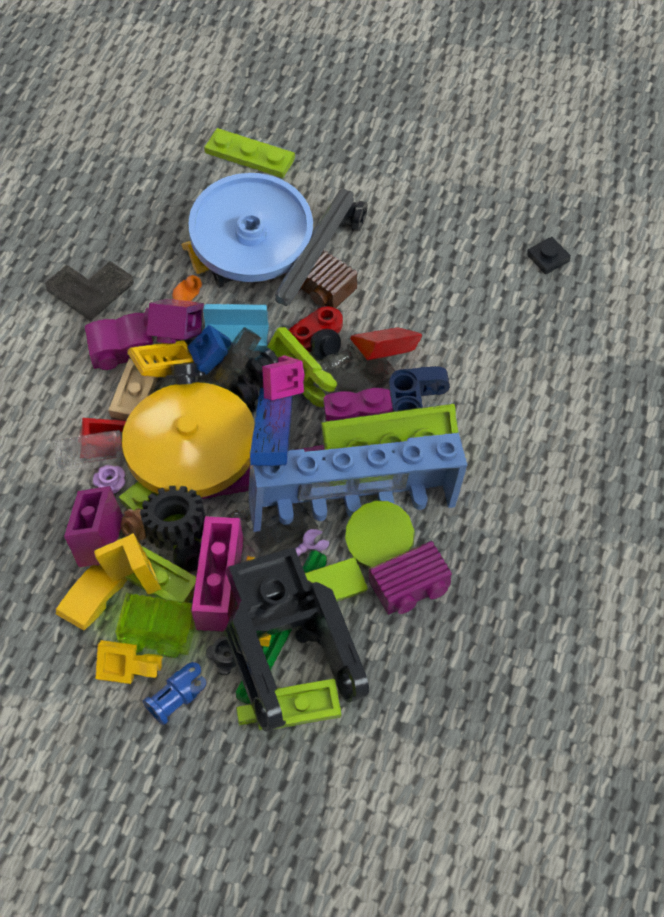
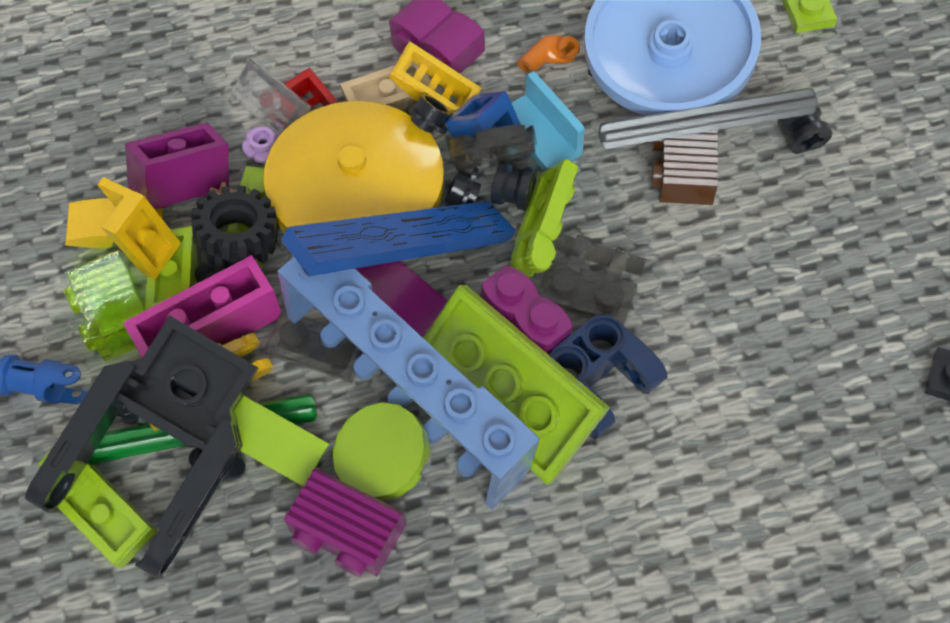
camera: 55 degrees right, 5 degrees up
(120, 663) = (44, 305): yellow plate -> none
(173, 319) = (490, 57): magenta brick -> none
(283, 378) = (500, 210): dark pink bracket -> none
(308, 544) = (318, 385): lavender hand -> none
(316, 322) = (614, 202): red plate -> none
(325, 343) = (598, 222): black plate -> none
(386, 342) = (651, 281): red slope -> none

